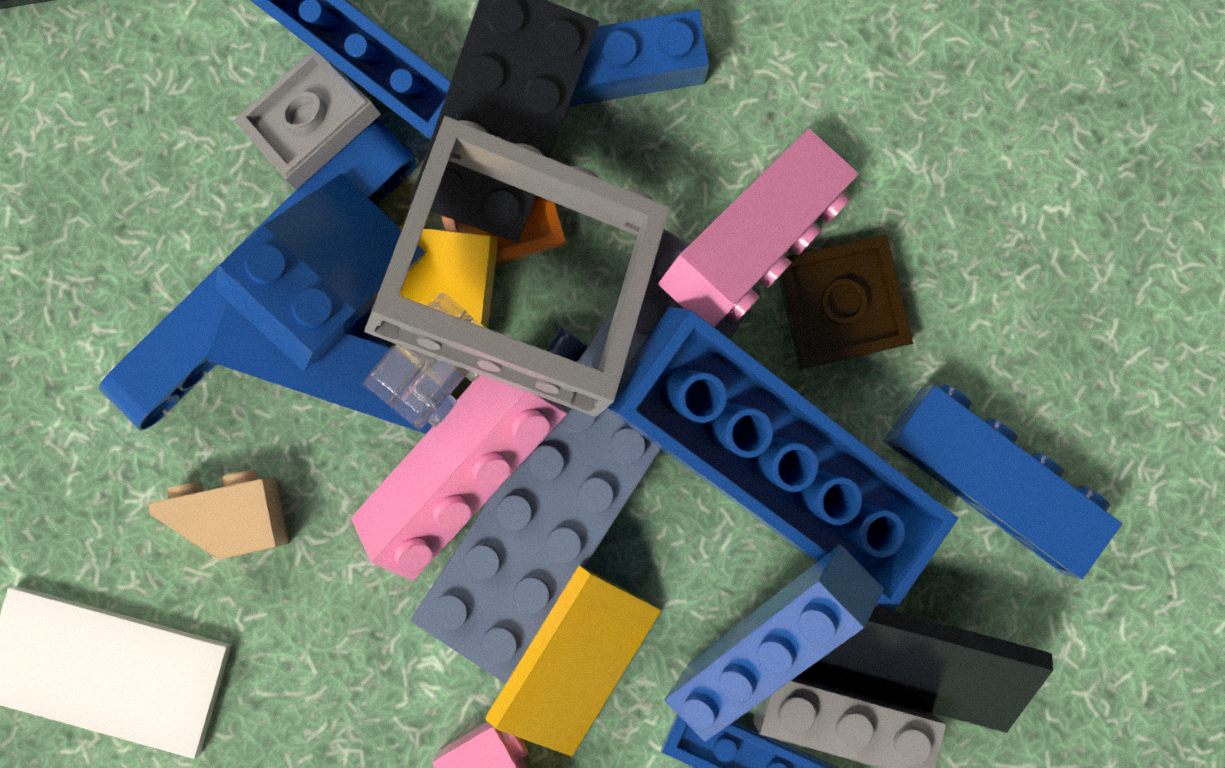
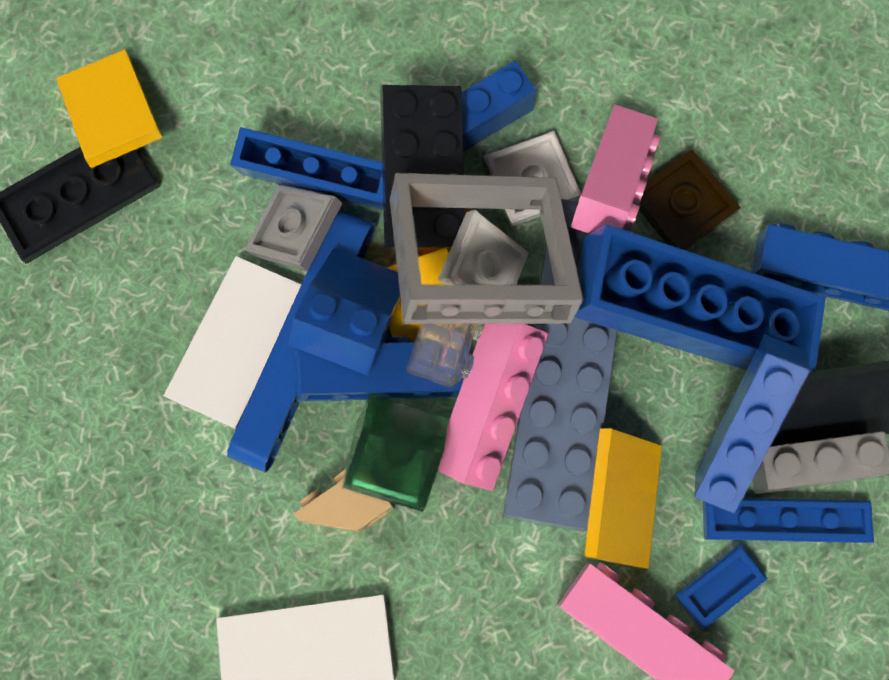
camera: 20 degrees left, 10 degrees down
(169, 239) = (233, 342): none -> white tile
(305, 482) = (395, 452): none -> clear green slope
(531, 277) = (482, 255): none -> white tile
(669, 166) = (537, 158): none -> white tile

